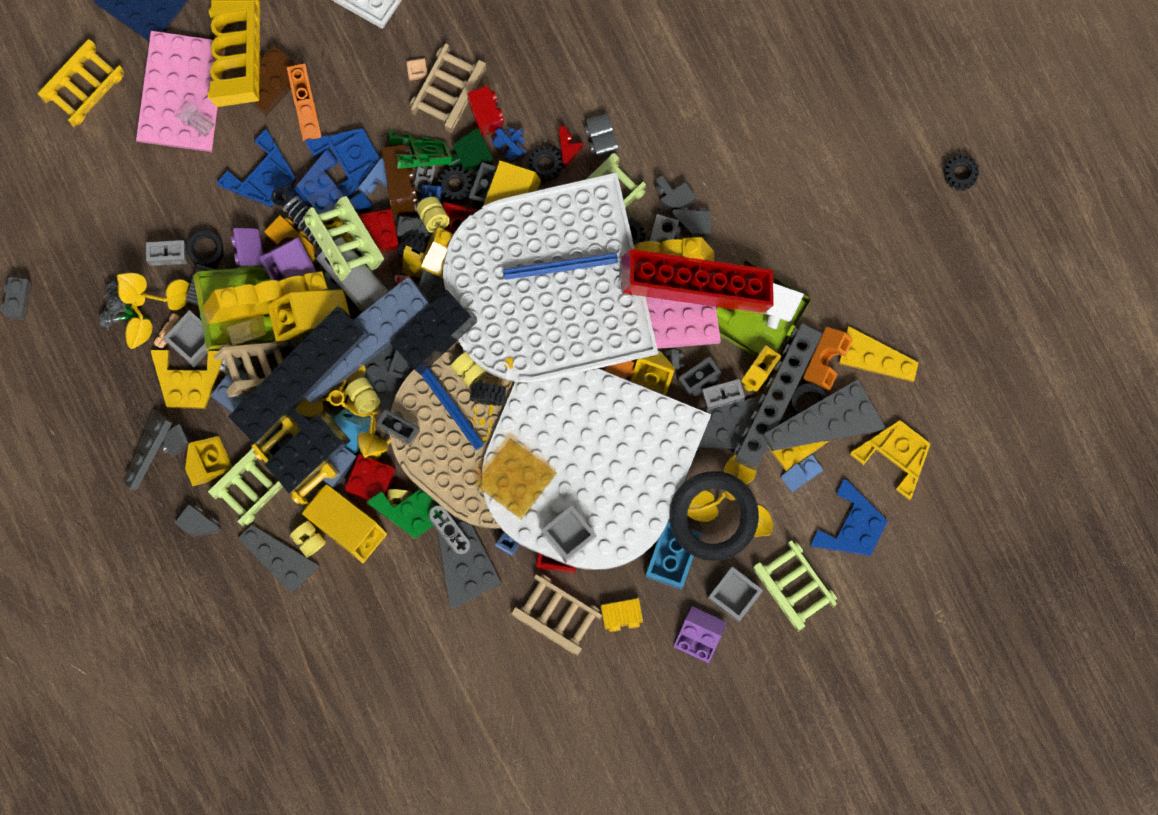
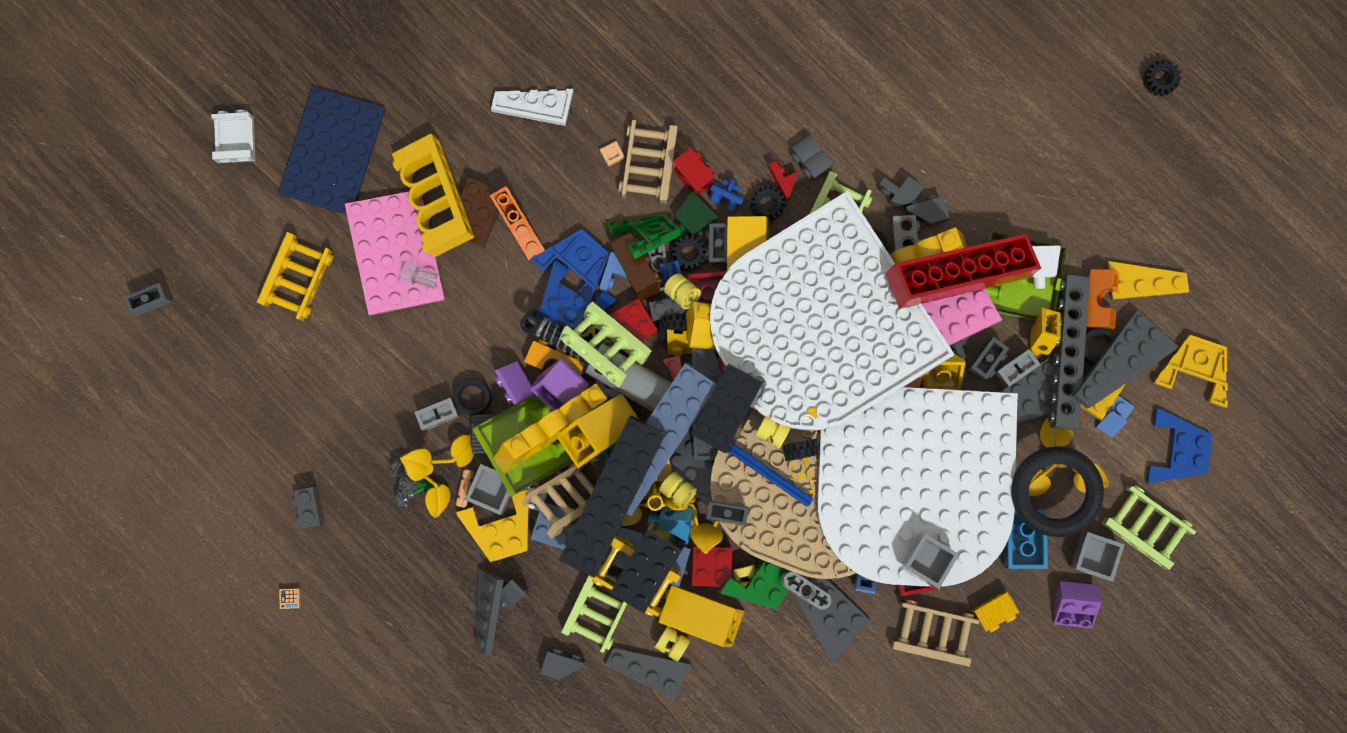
camera: 20 degrees left, 5 degrees up
(206, 461) = (548, 601): yellow slope -> none
(244, 329) = (540, 465): clear yellow panel -> none
(269, 174) = (507, 309): blue wing -> none
(515, 479) = (857, 523): clear yellow plate -> none
(560, 265) = (828, 301): blue axle -> none

